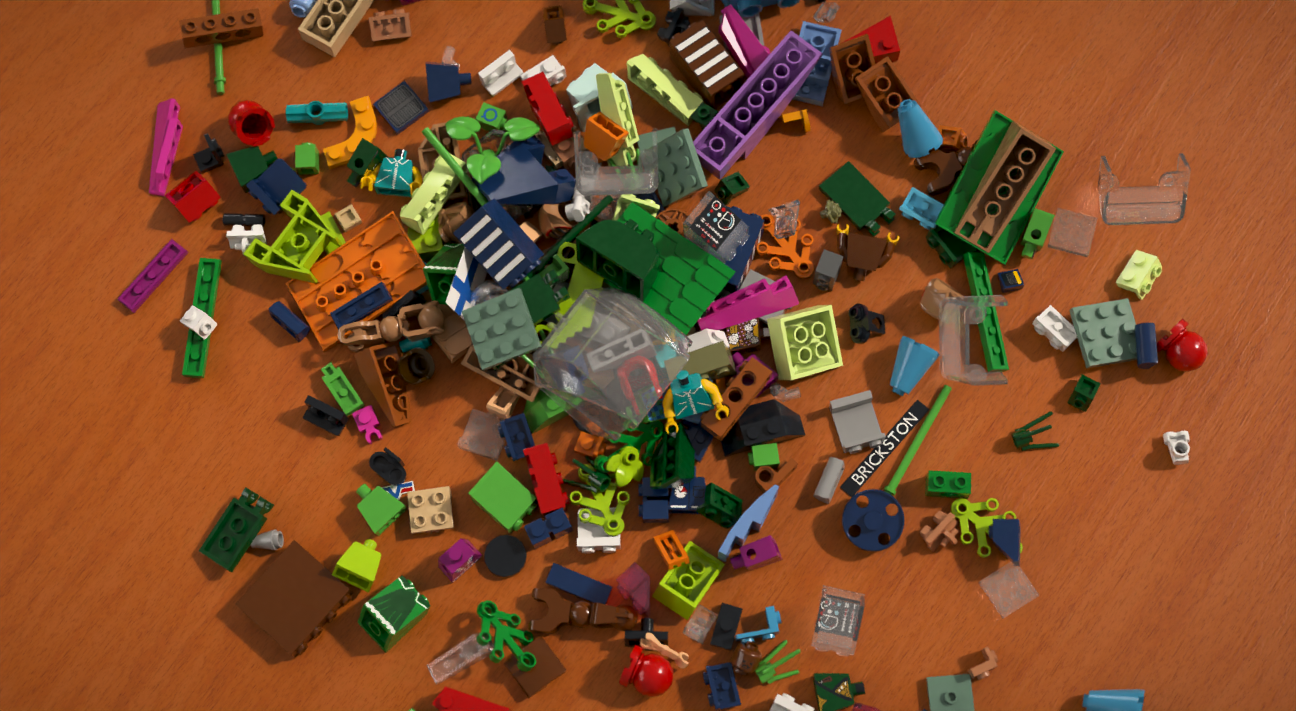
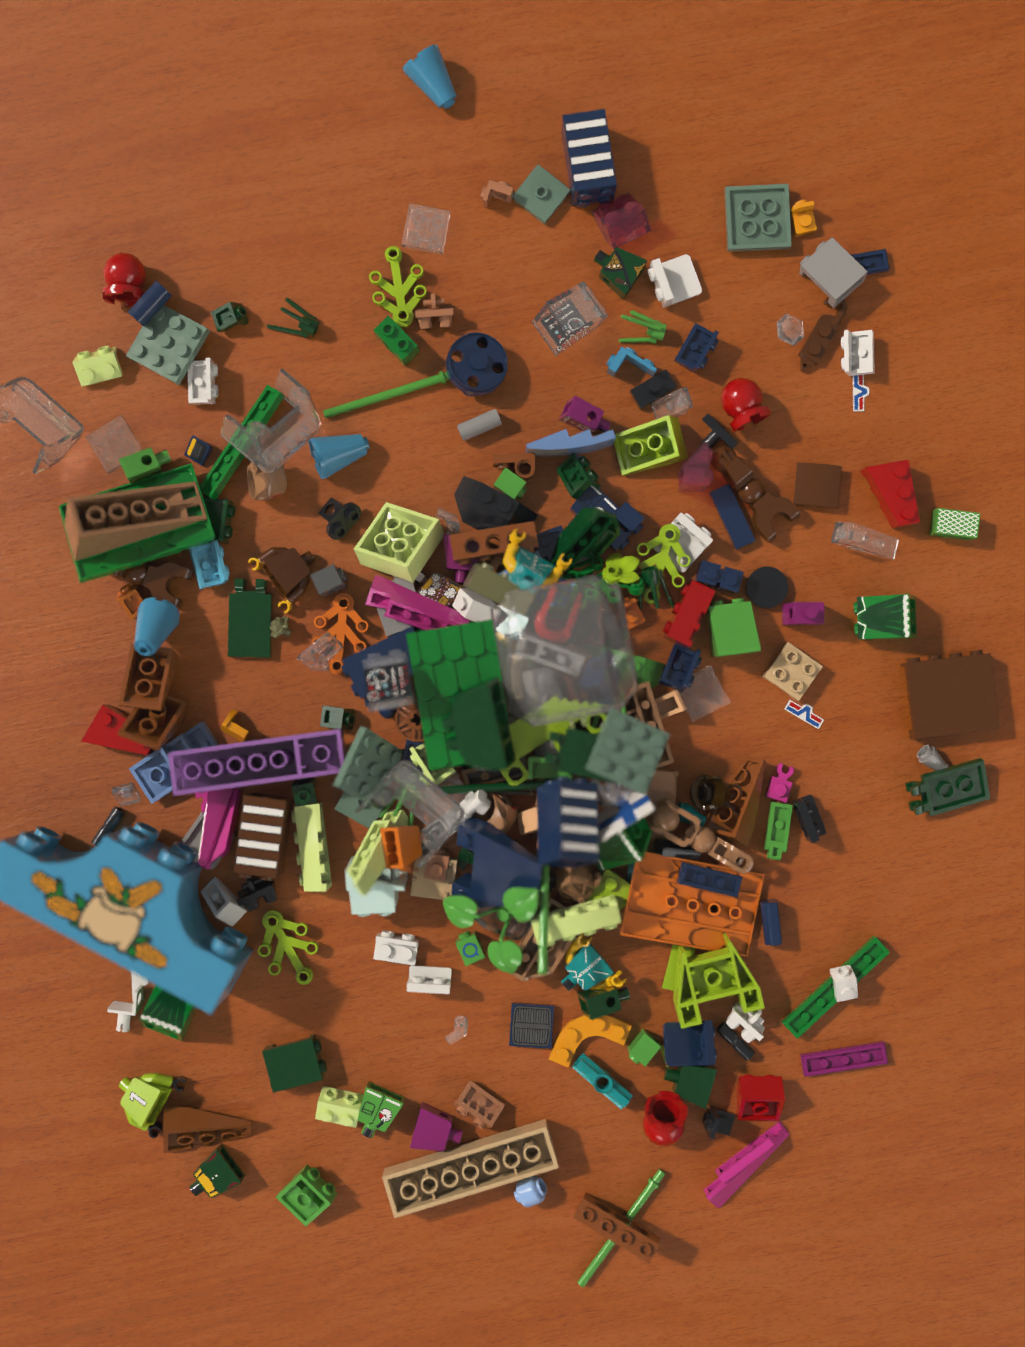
camera: 135 degrees left, 15 degrees up
(348, 218) = (653, 967): tan tile -> none
(359, 565) = (882, 675): lime torso -> none
(379, 508) = (829, 708): bright green torso -> none
(388, 467) = (795, 733): black bracket -> none
(444, 80) = (479, 1014): dark blue torso -> none
(491, 615) = (823, 525): green plant -> none
(547, 109) = (422, 911): red wedge -> none
(554, 25) = (348, 984): reddish brown slope -> none
(653, 644) = (721, 420): light nougat piece -> none
(676, 560) = (642, 459): orange tile -> none
(746, 658) = (662, 350): reddish brown head -> none
(856, 422) = (418, 448): light grey panel -> none
(879, 454) = (414, 413): black sticker -> none
(1006, 538) = (393, 260): dark blue slope -> none
(1178, 446) = (198, 218): white plate -> none

